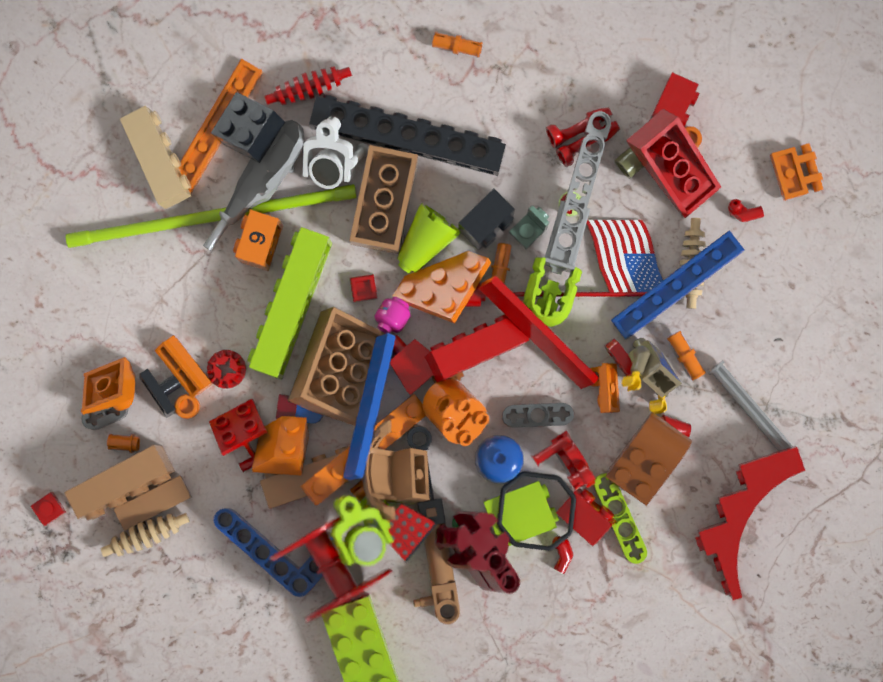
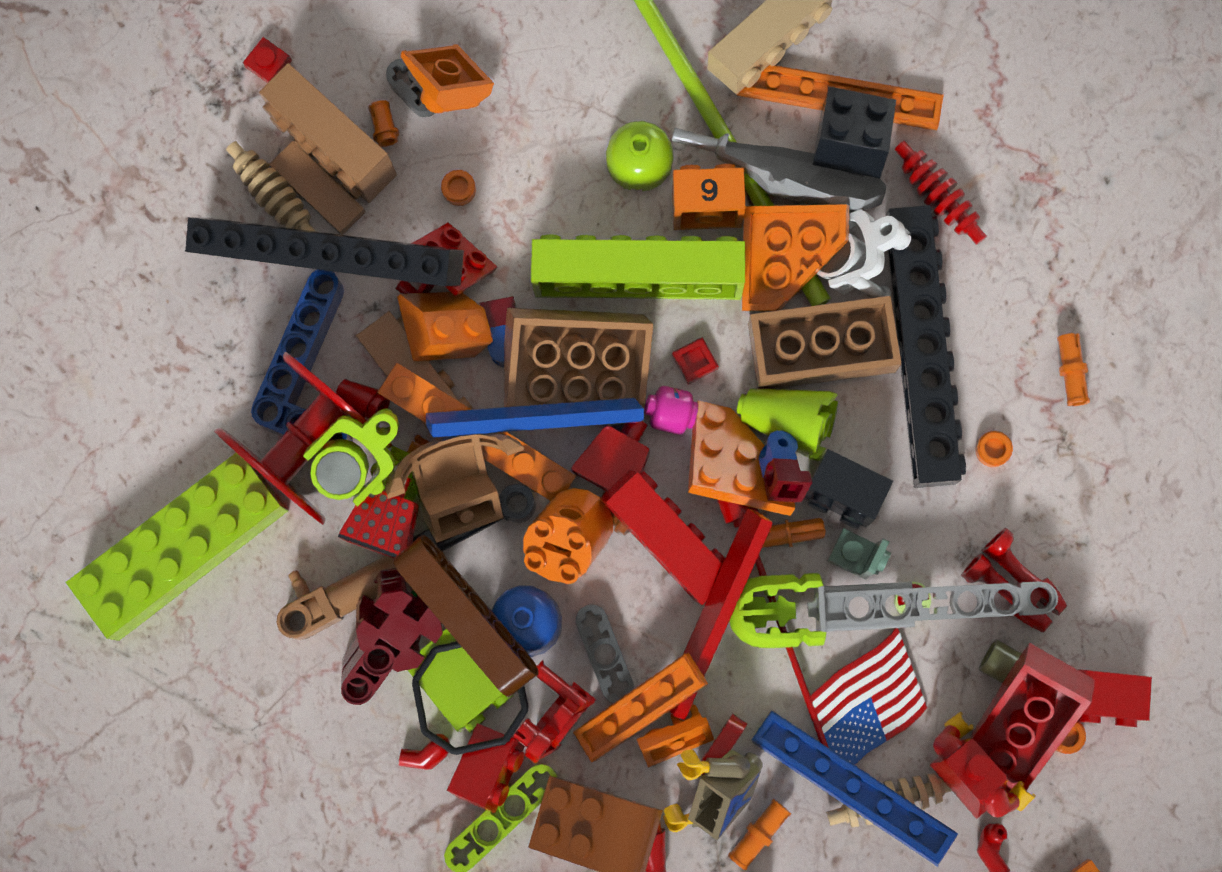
camera: 75 degrees right, 5 degrees down
(160, 391) = (466, 145): black tile -> none
(183, 366) = (508, 164): orange piece -> none
(204, 511) = (325, 251): none -> black brick
(210, 276) = (639, 156): none -> lime cylinder
(230, 379) = (511, 228): red gear -> none
(312, 200) = (788, 249): none -> orange plate
(312, 519) = (362, 398): none -> red cone
(460, 257) = (781, 469): none -> dark red leg
(487, 495) = (465, 616): none -> reddish brown beam
(490, 115) = (994, 449): none -> orange tile
(581, 403) = (640, 707): none -> orange tile
(695, 206) = (974, 774): none -> red torso

